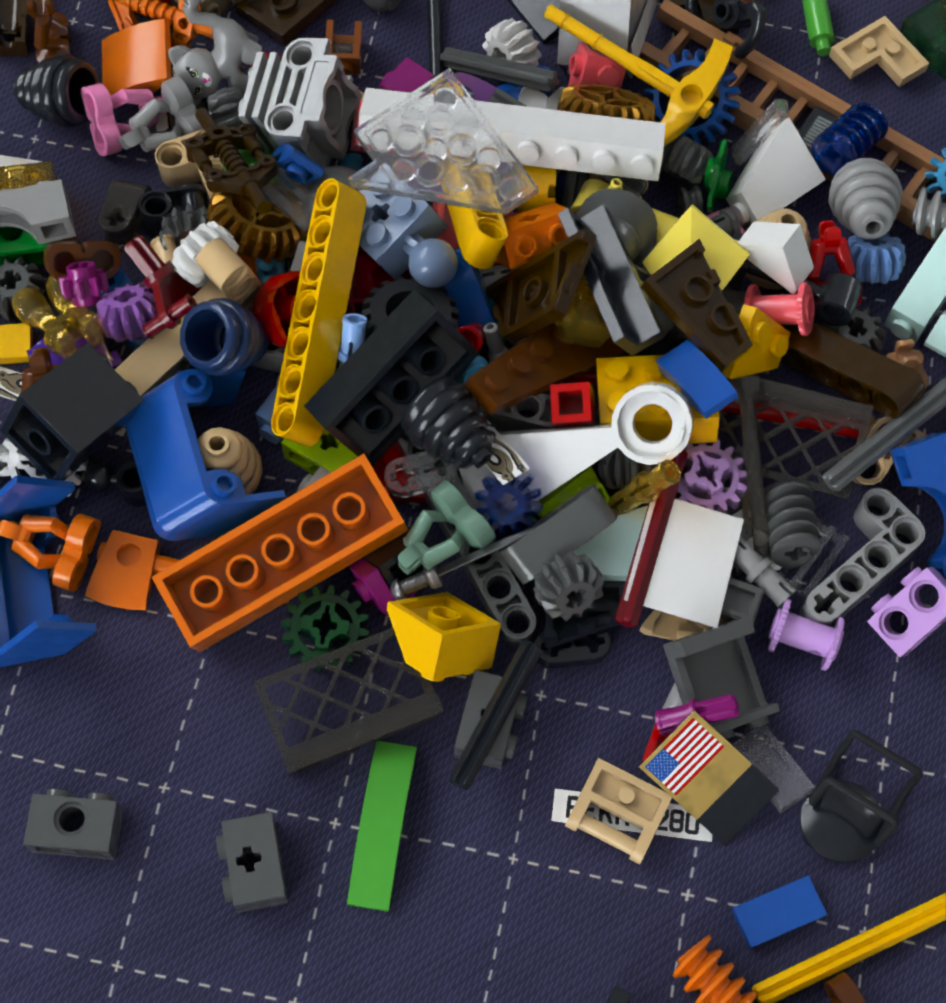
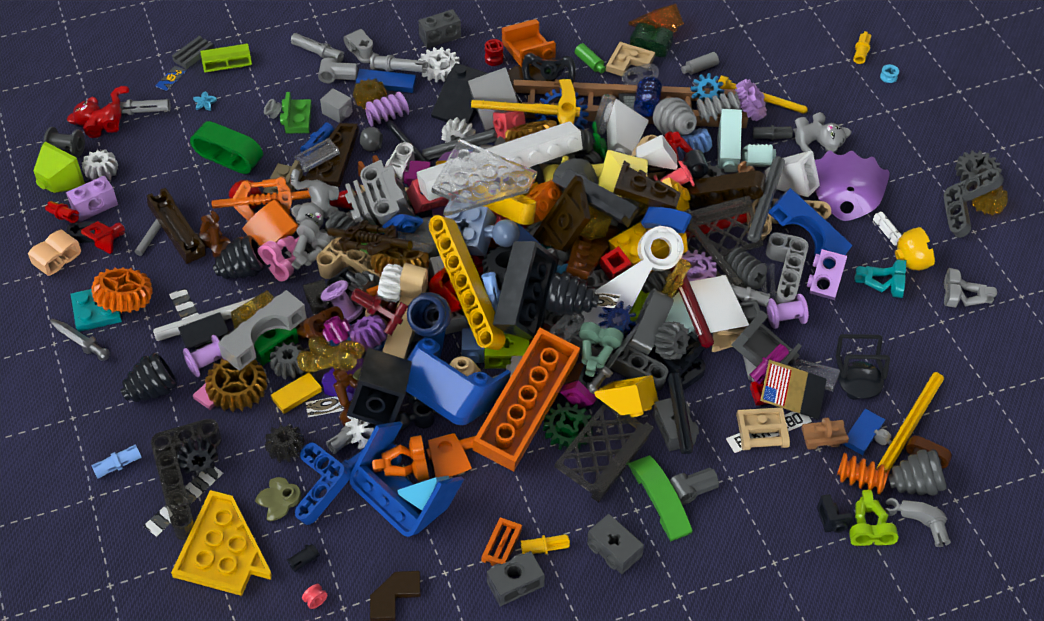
camera: 30 degrees left, 15 degrees down
(29, 605) = (419, 493): none -> medium azure slope
(109, 769) = (495, 559): none -> orange tile
(138, 220) = (338, 297): none -> lavender hose
(157, 797) = (543, 544): none -> yellow axle
(393, 47) = (401, 159): none -> white piece
(430, 837) = (695, 484): none -> dark grey piece
(706, 881) = (824, 433): none -> medium nougat hips
(801, 940) = (882, 437): none -> light grey piece
(878, 82) = (639, 70): none -> clear beam

